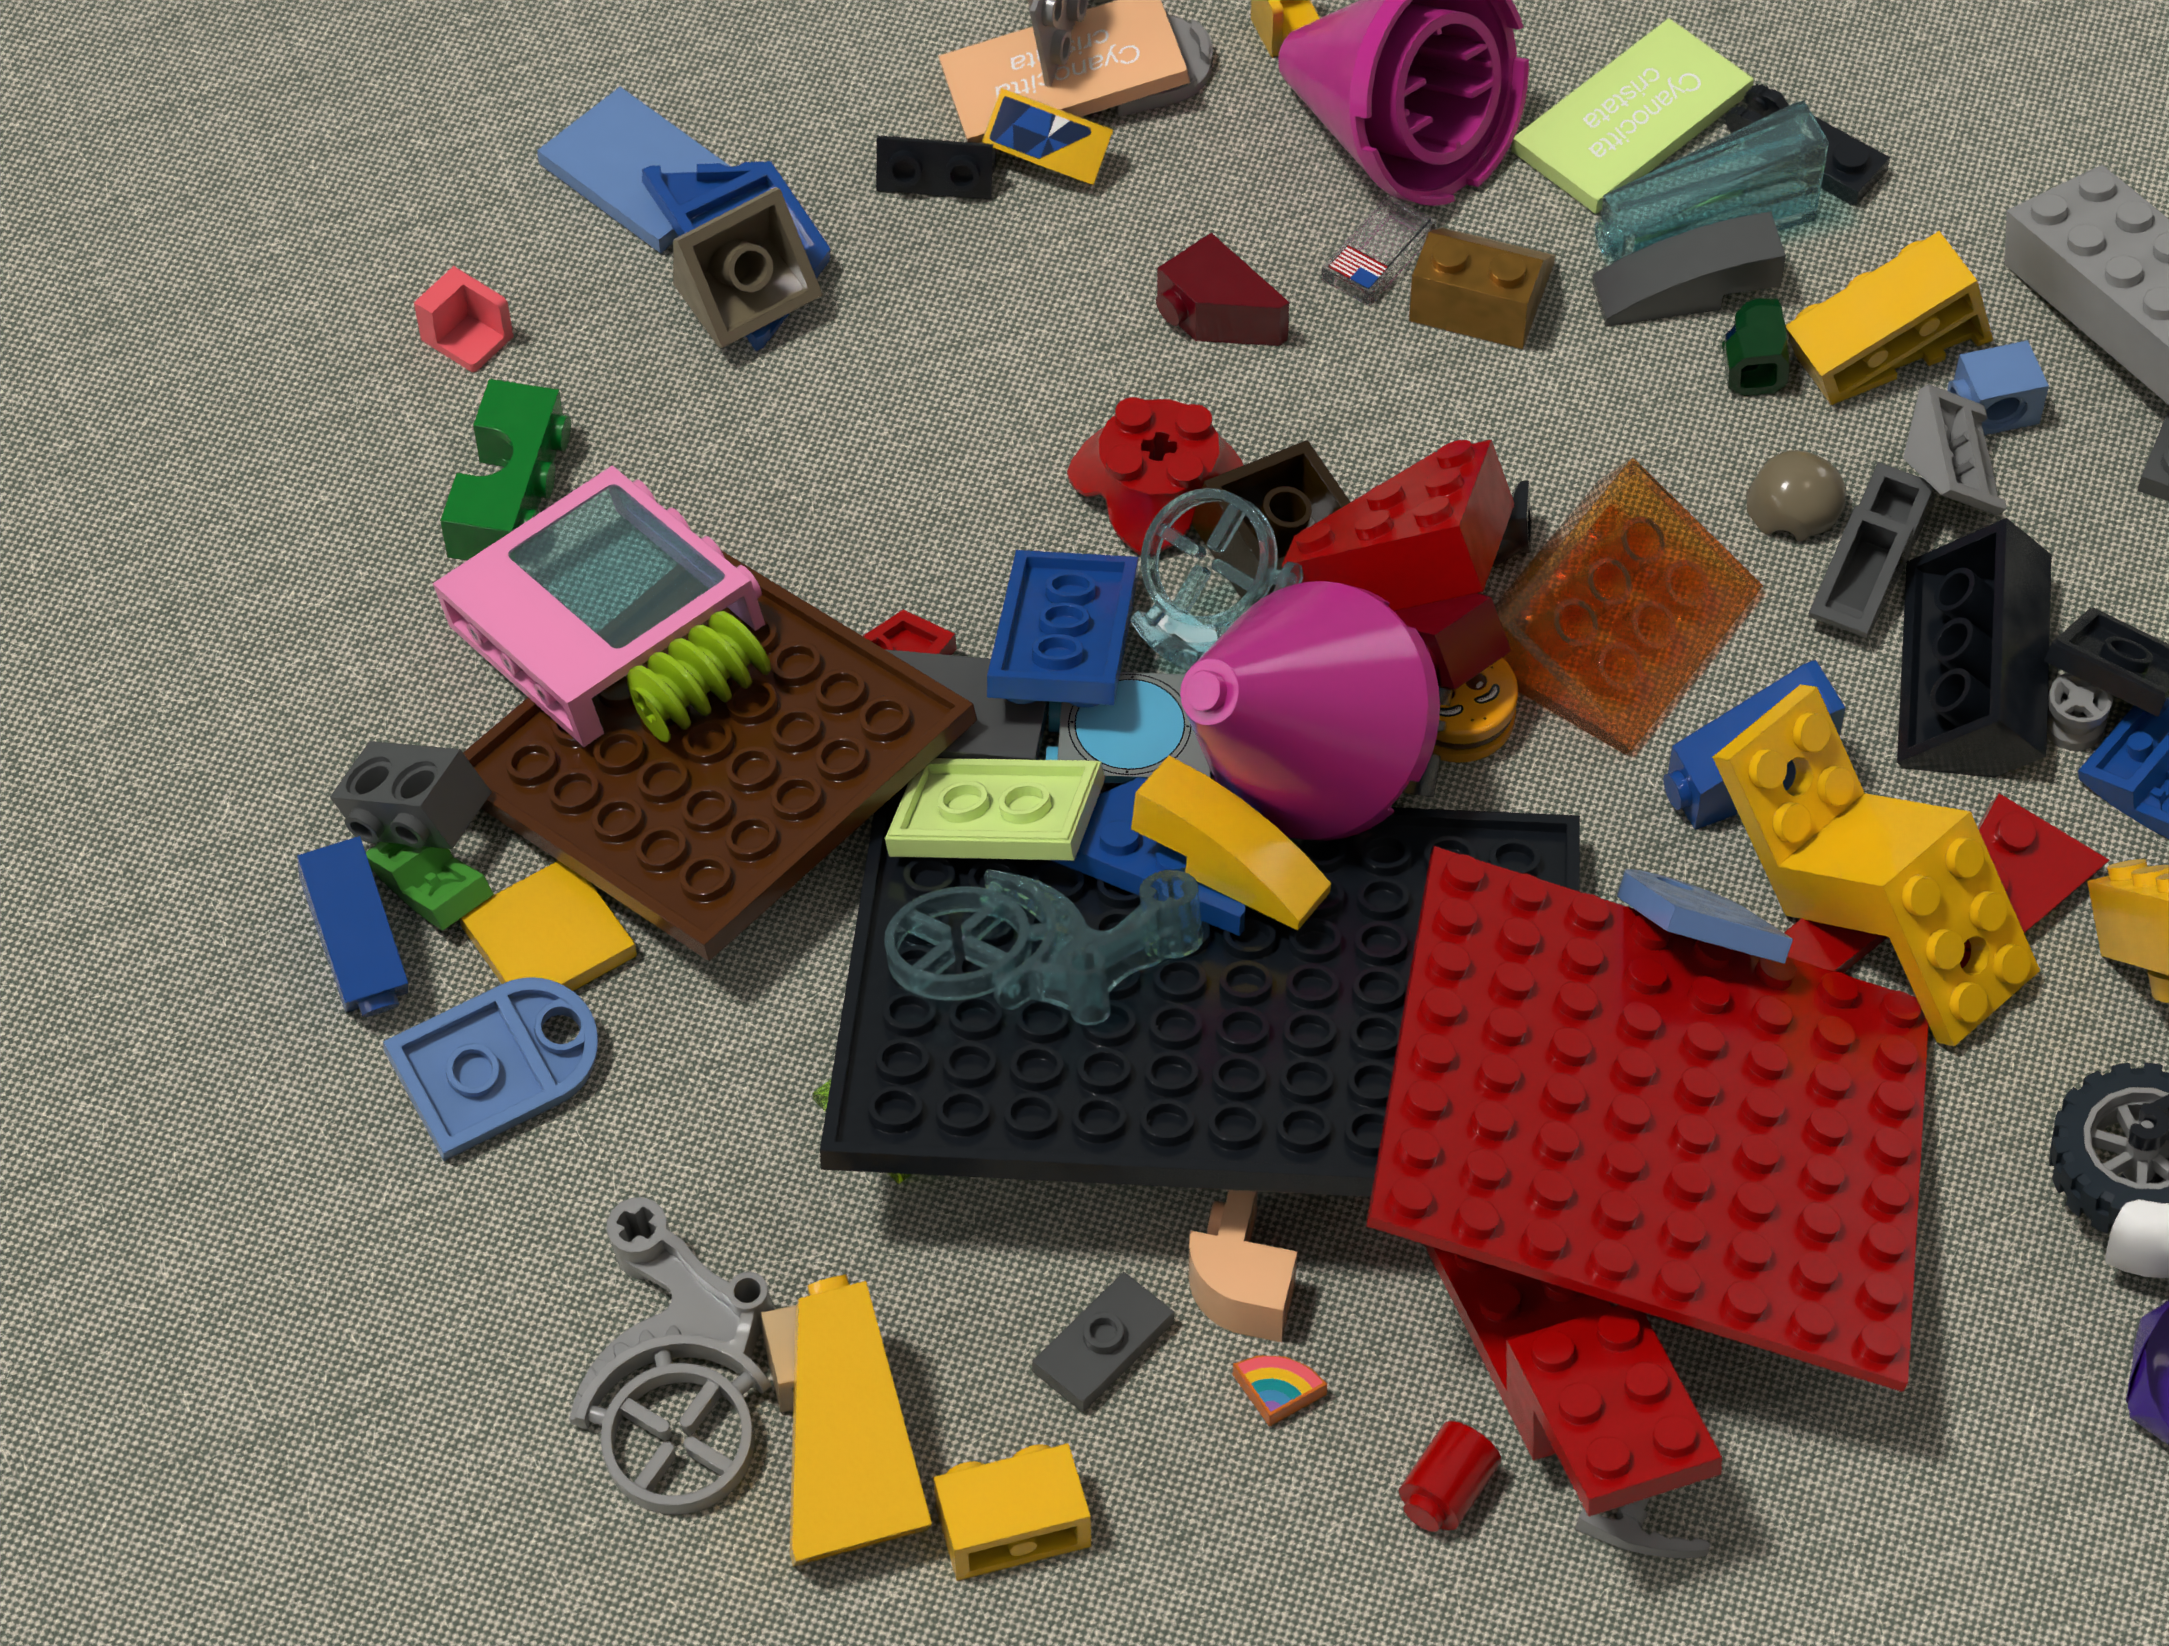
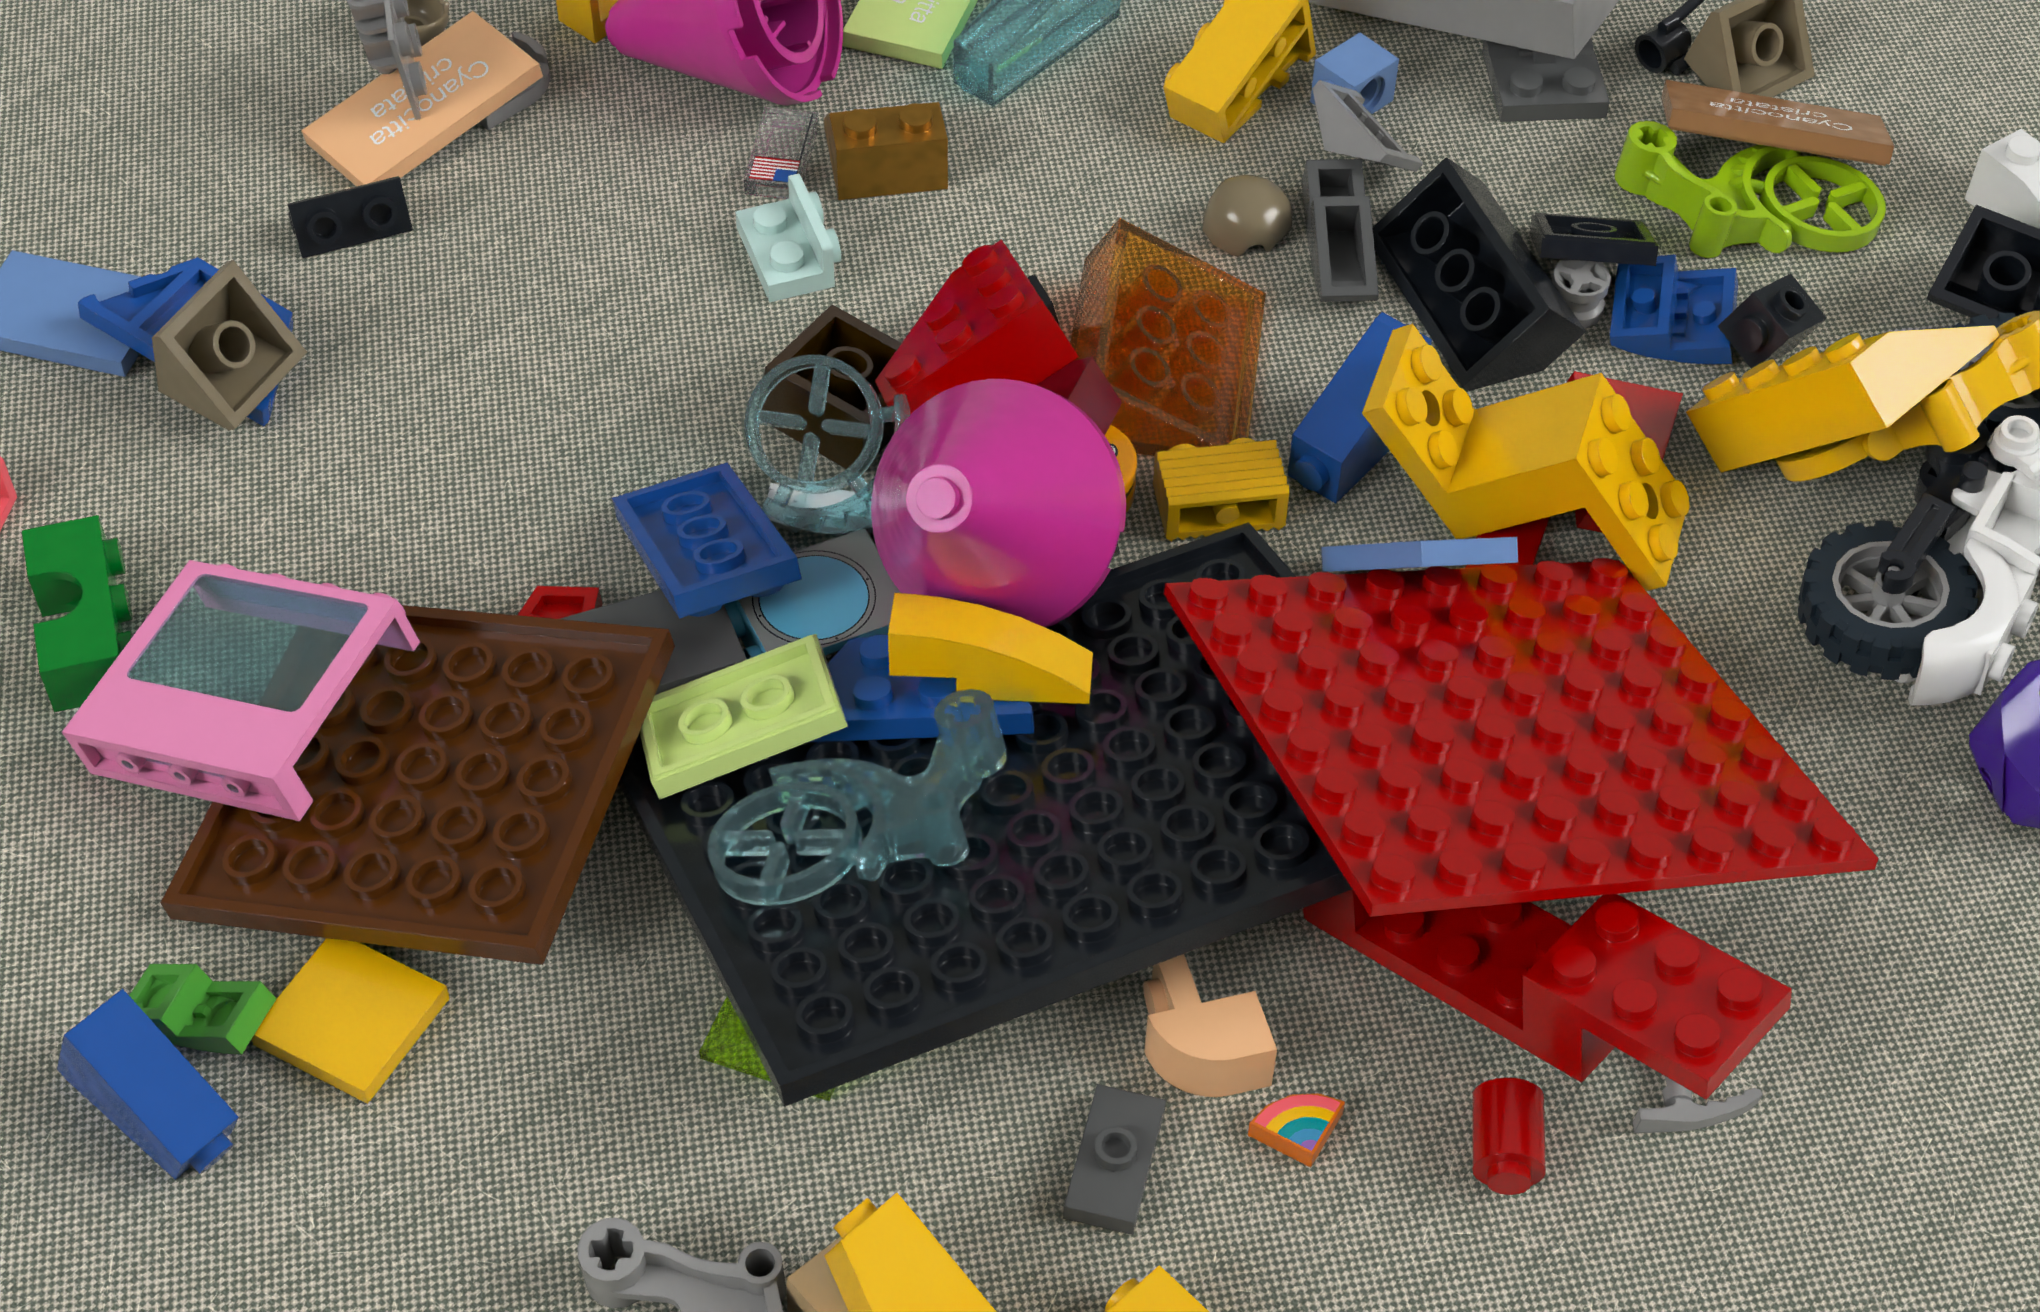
camera: 30 degrees left, 5 degrees down
(410, 795) = (143, 935): dark grey brick -> none
(491, 1063) = (362, 1160): medium blue tile -> none
(693, 670) = (384, 706): lime piece -> none
(1047, 136) = (441, 156): slope -> none
(1147, 460) = (695, 381): red brick -> none
(1220, 297) = (673, 231): dark red slope -> none
(1325, 354) = (790, 243): none -> light aqua bracket
(1580, 769) = (1220, 488): none -> yellow brick
(1692, 271) = (1055, 77): dark grey slope -> none
(1757, 349) = (1146, 115): dark green rock -> none

